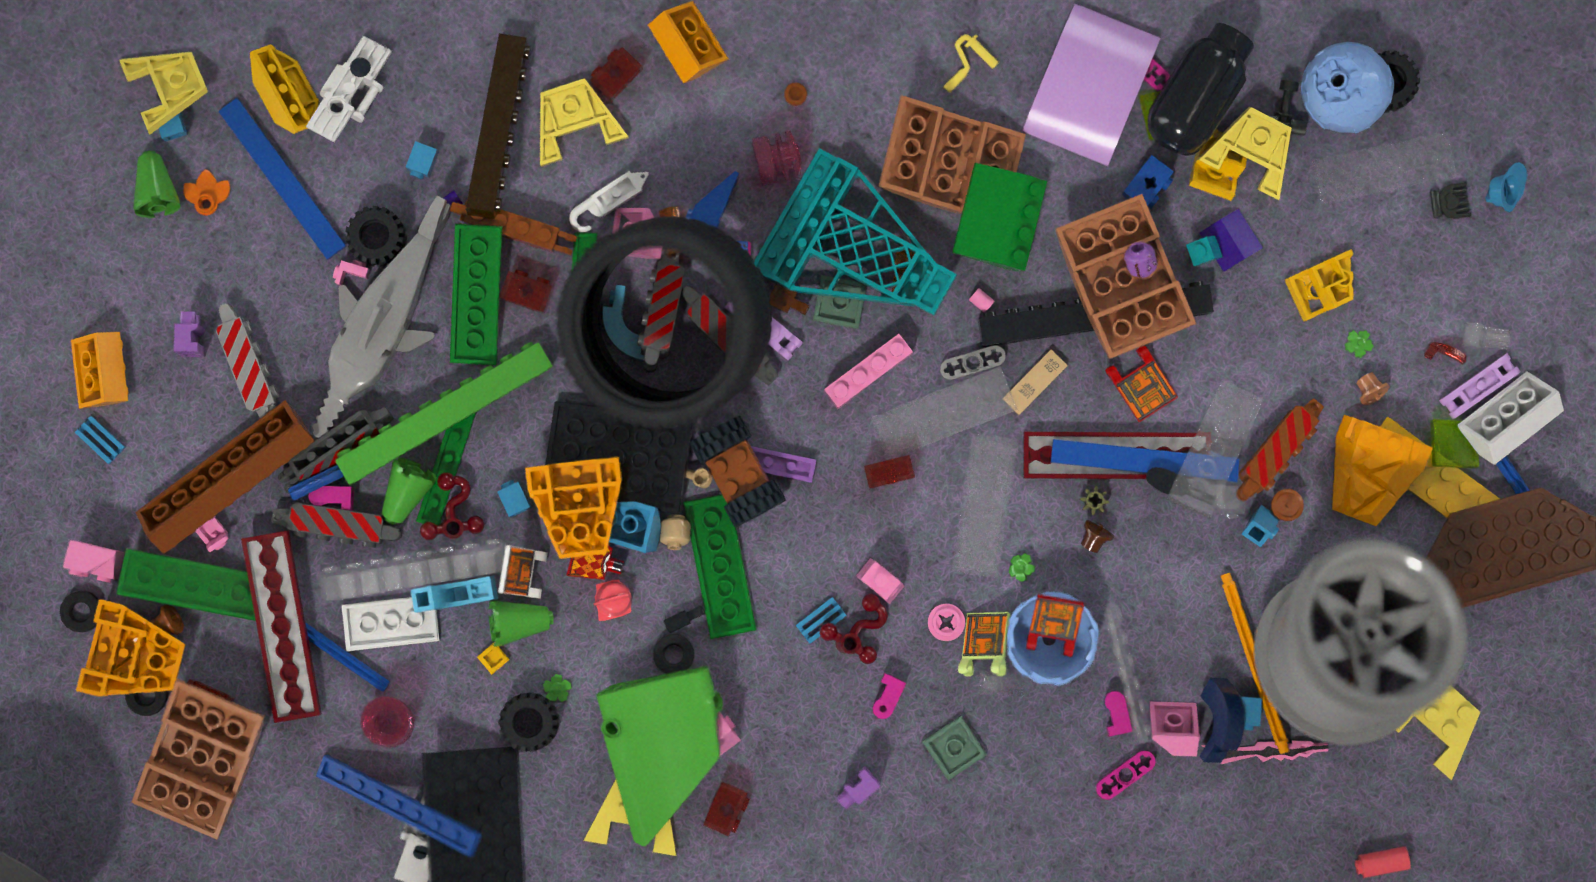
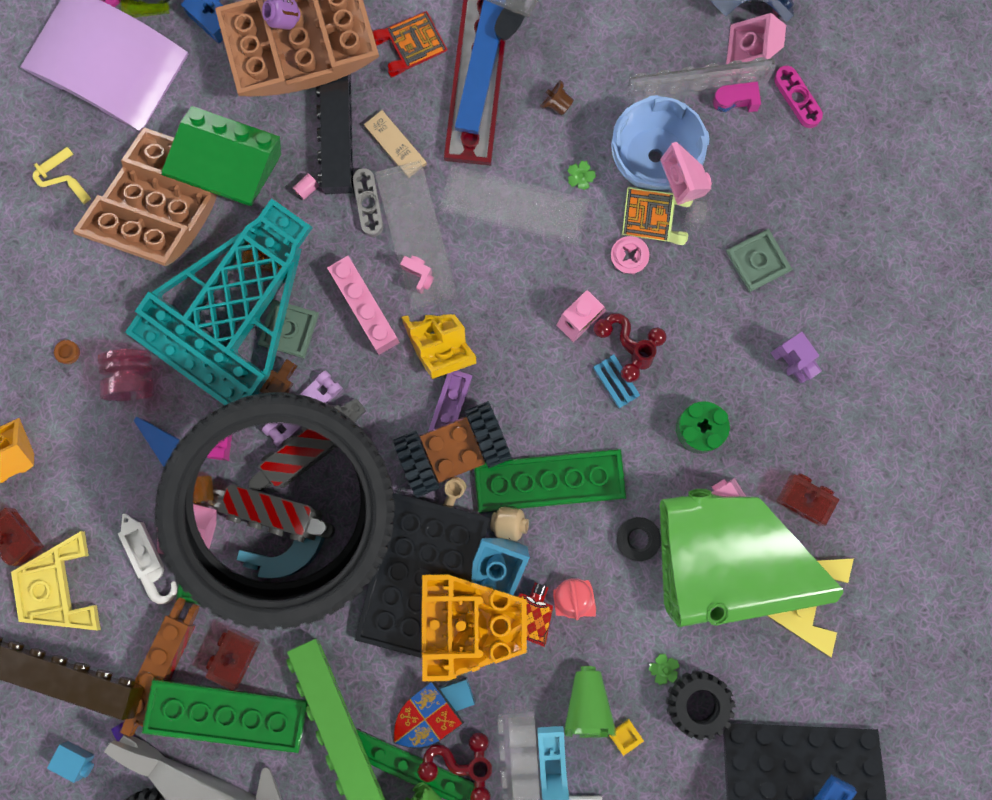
camera: 80 degrees left, 5 degrees down
(491, 474) = (425, 718): none -> shield
(518, 571) = (536, 700): flag -> none
(682, 619) = (602, 525): black bar -> none
(791, 715) = (715, 421): none -> green brick
(832, 451) = (443, 350): none -> yellow slope
(886, 703) = (702, 318): dark pink leg -> none
(889, 472) = (470, 294): clear red brick -> none
(910, 417) = (416, 267): none -> bright pink bracket
(1014, 664) = (685, 174): none -> bright pink slope
(1057, 620) = (640, 138): flag -> none
(1099, 496) = (523, 103): olive gear -> none

